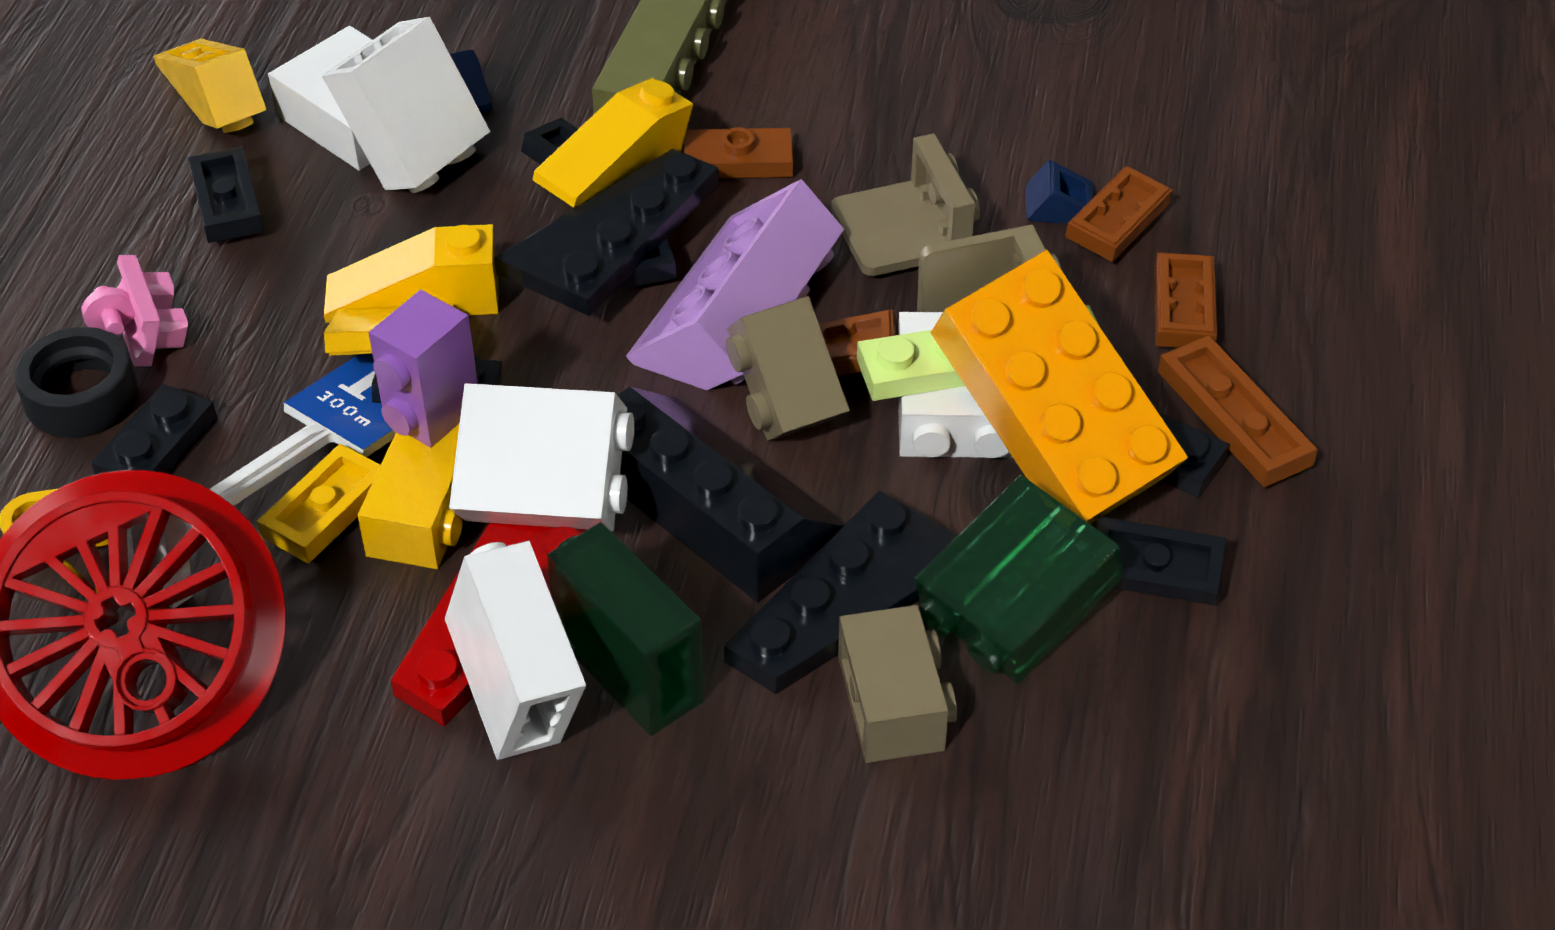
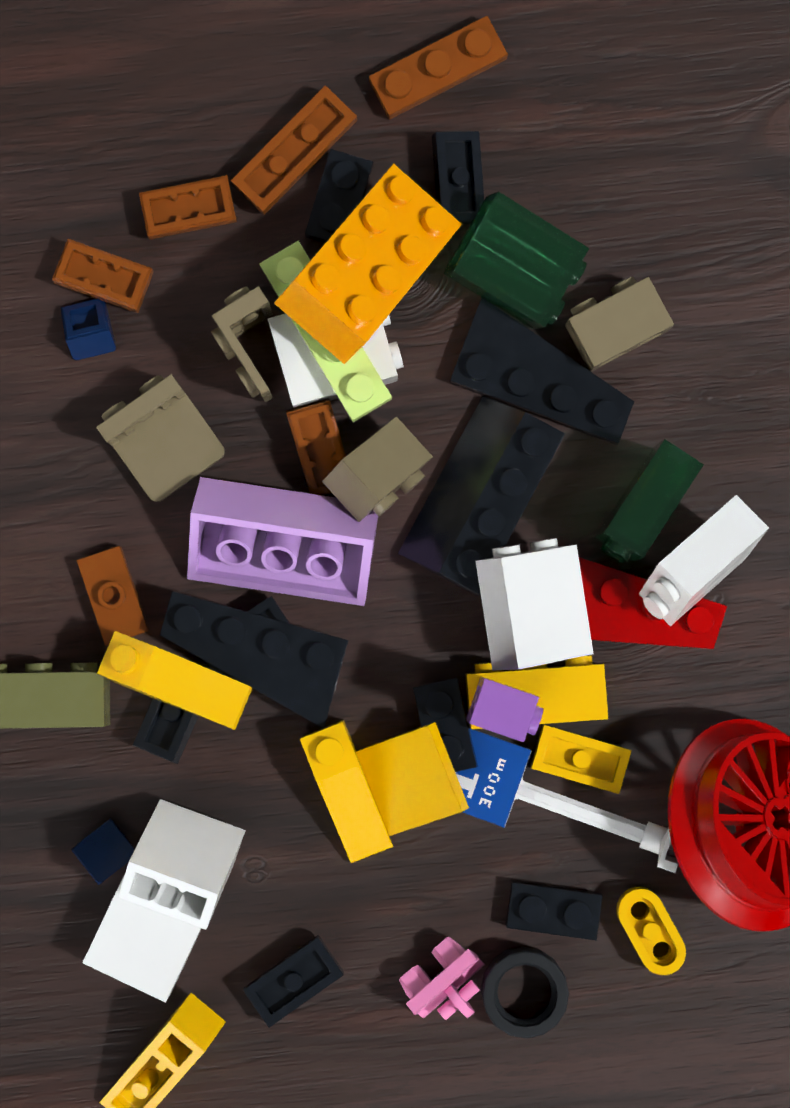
camera: 110 degrees left, 40 degrees up
(1323, 589) = (438, 67): none -> dark orange plate

